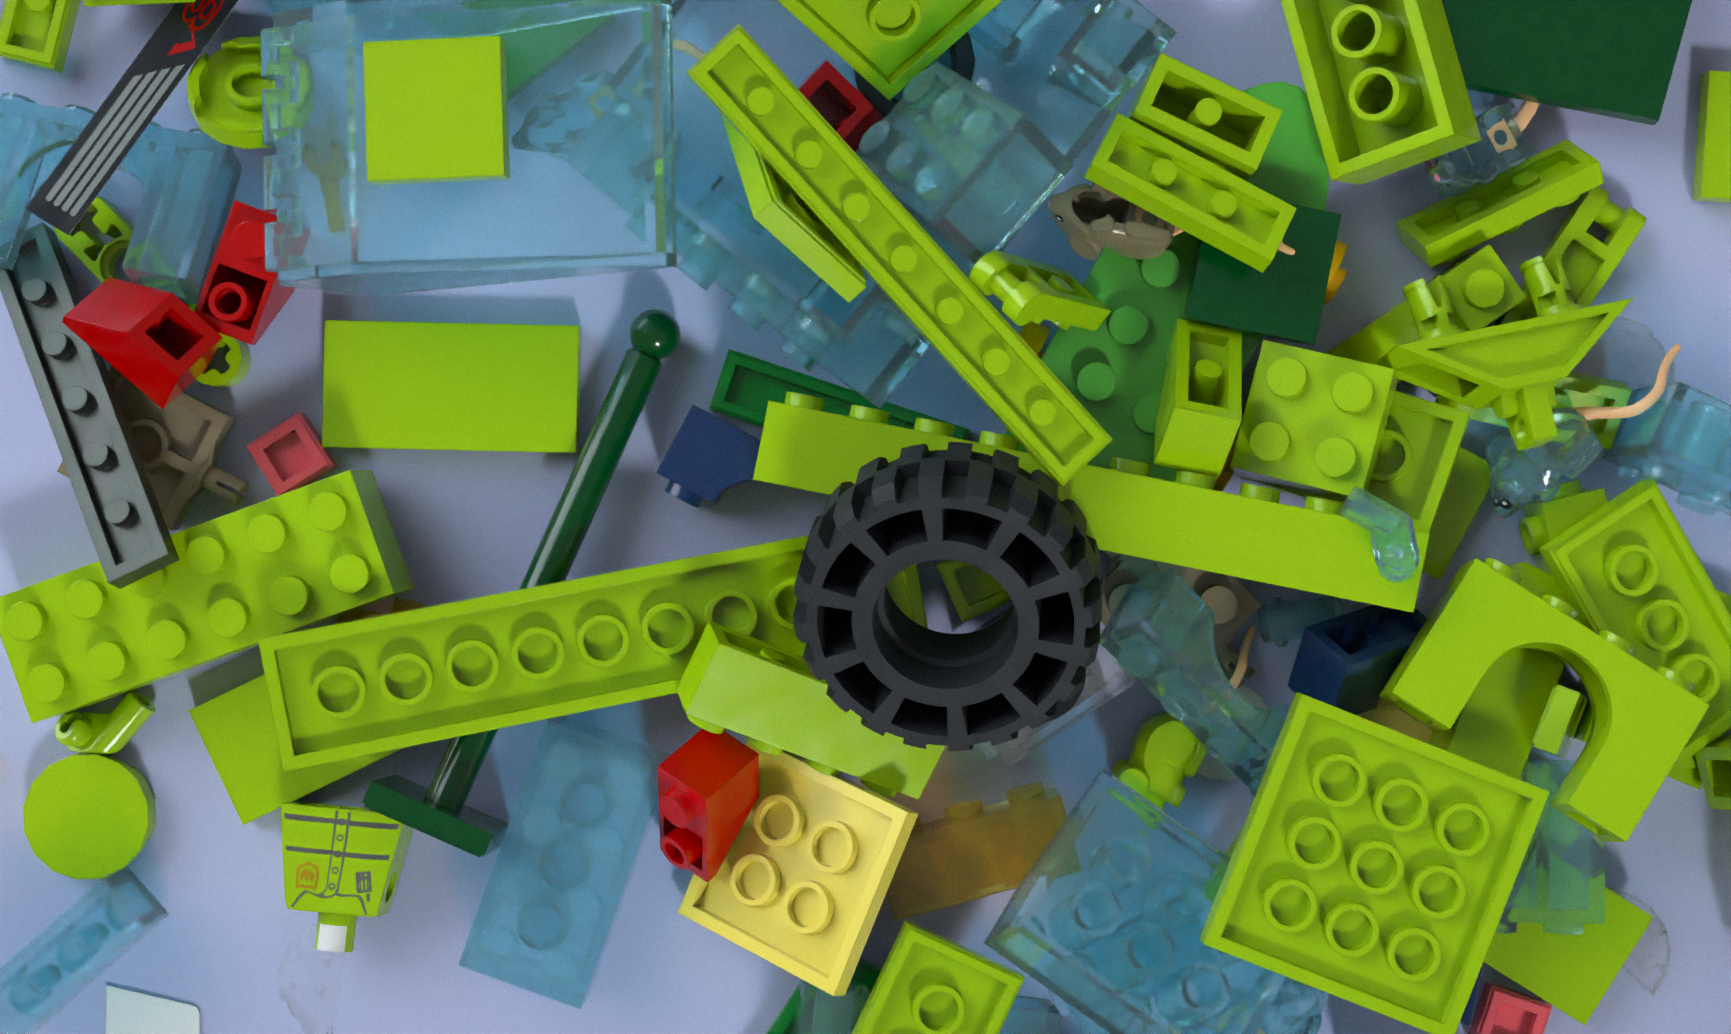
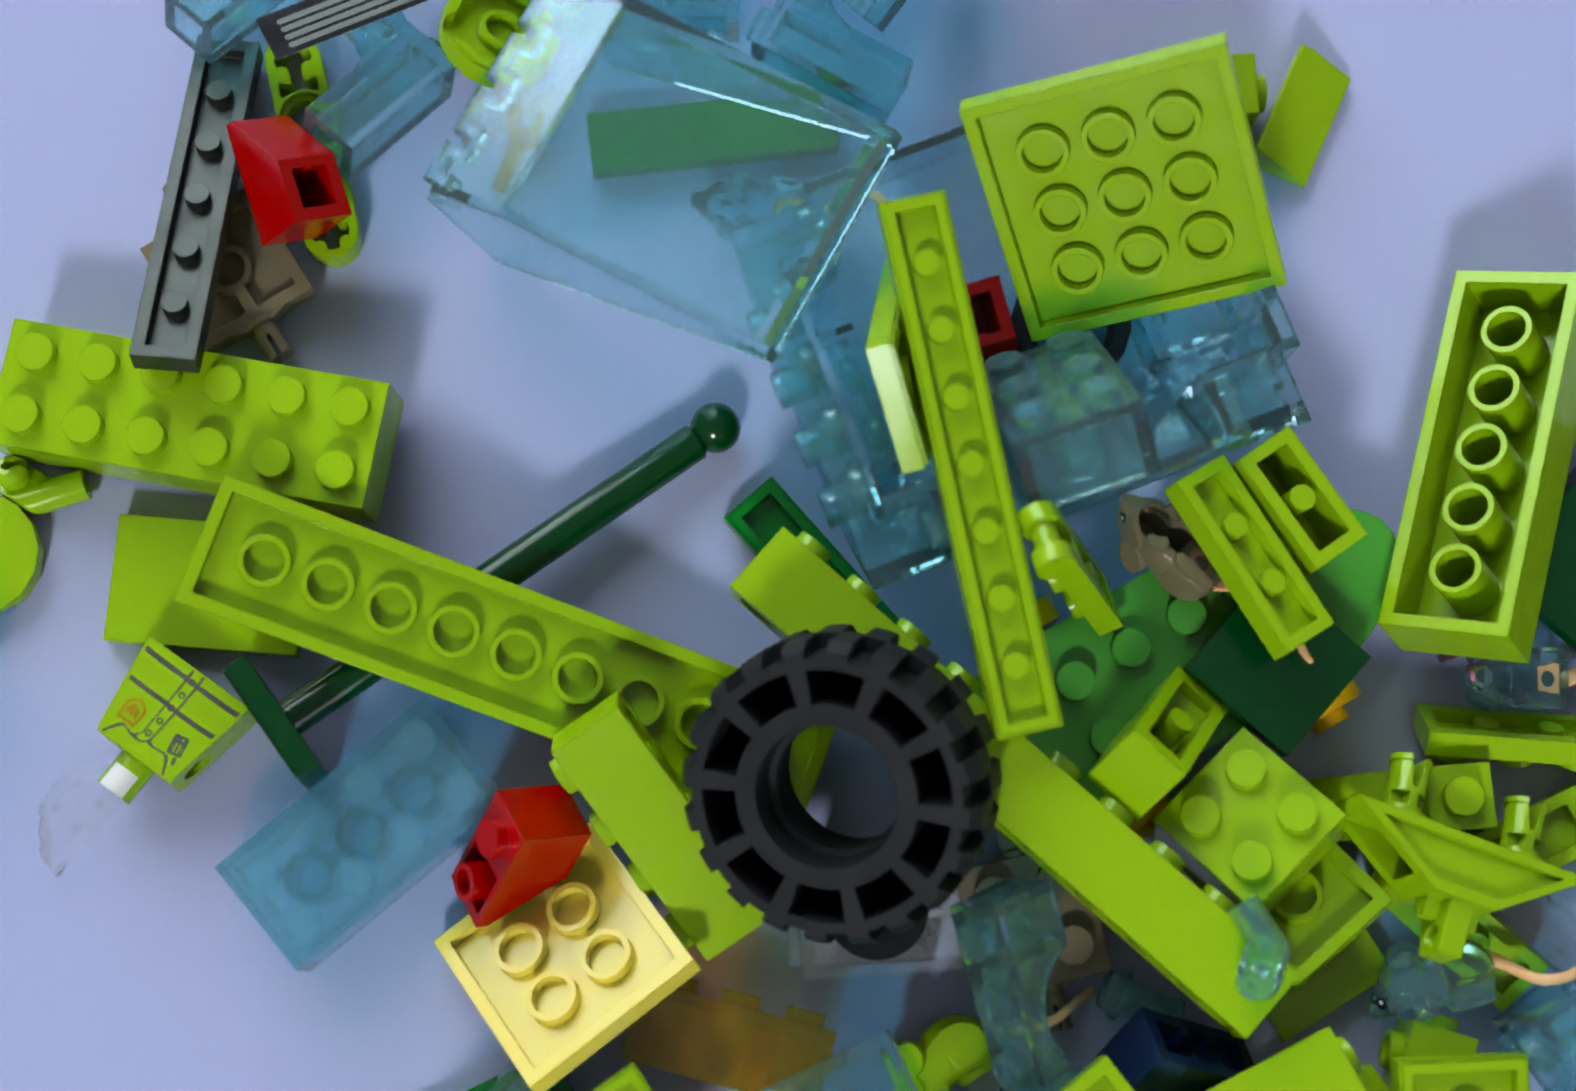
camera: 25 degrees right, 10 degrees down
(238, 292) = (390, 186): red slope -> none
(292, 454) = (345, 347): coral tile -> none
(436, 110) = (649, 121): lime tile -> none
(451, 386) = (515, 373): lime tile -> none
(708, 458) = (699, 559): dark blue arch -> none
(971, 589) = (866, 802): lime tile -> none

